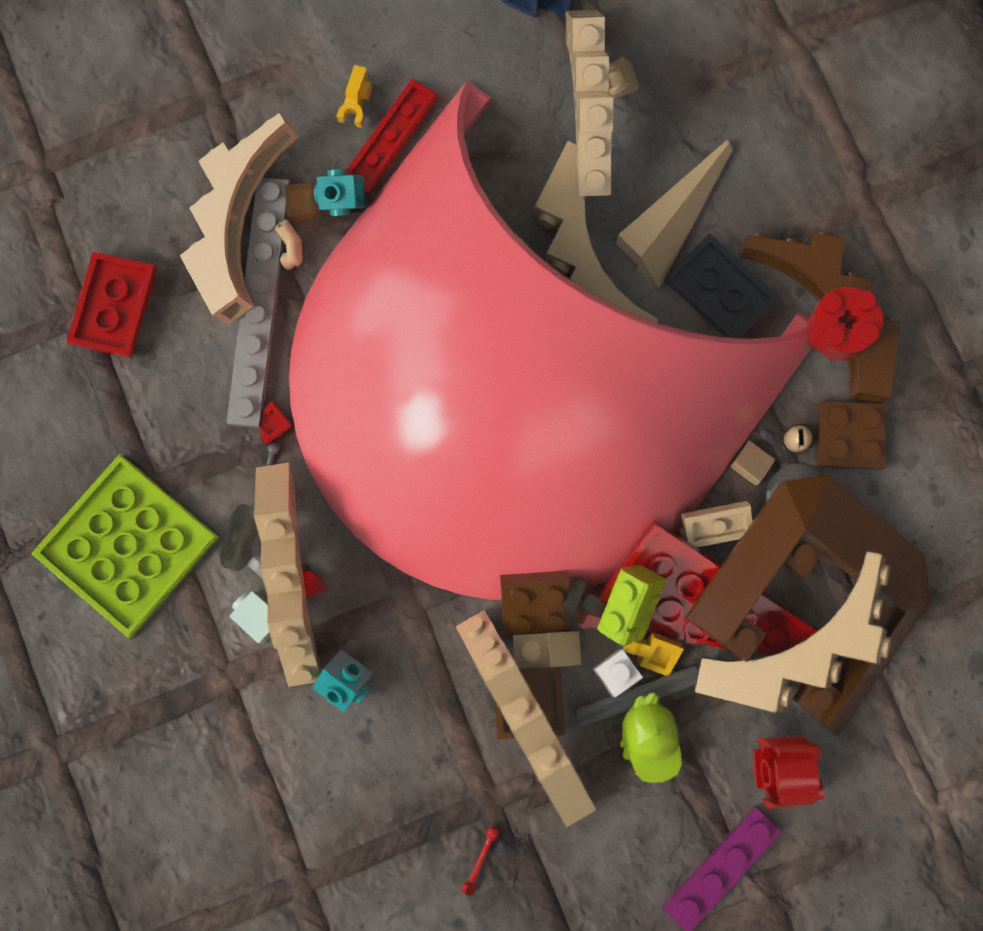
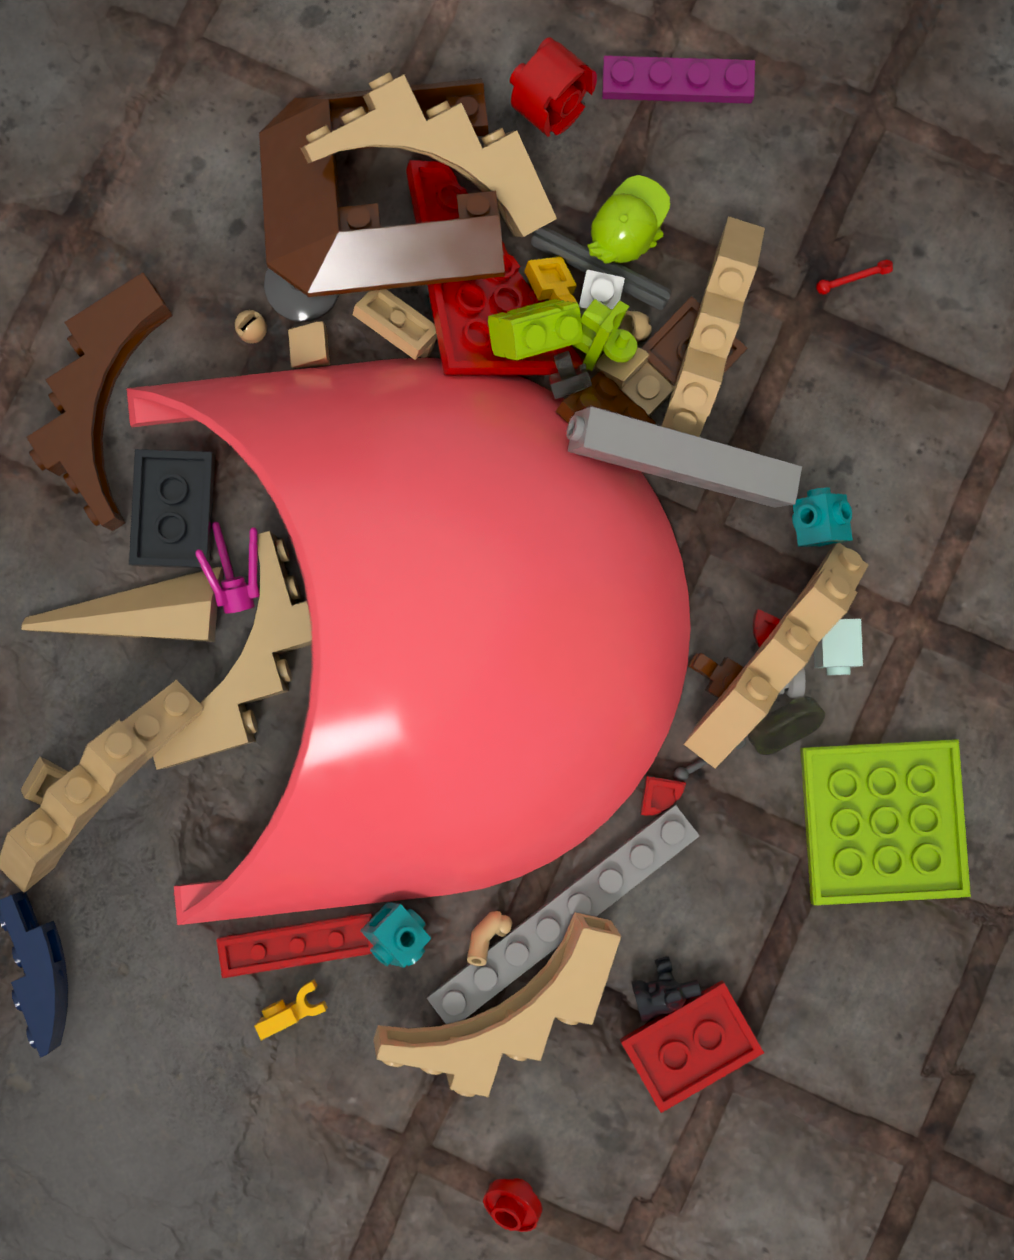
camera: 130 degrees left, 5 degrees up
(126, 124) = (513, 1204): none -> red plate
(156, 315) = (665, 993): none -> black piece
(300, 202) = (438, 964): clear orange slope -> none
(309, 526) = (719, 675): none -> reddish brown plate
(462, 621) = (682, 457): none -> light grey brick
(579, 680) = (637, 324): none -> tan hinge
(591, 648) = (602, 333): none -> lime hips
(633, 279) = (235, 592): none -> dark pink plant
(851, 435) = (206, 283): reddish brown plate -> none
(856, 309) = (99, 344): red brick -> none

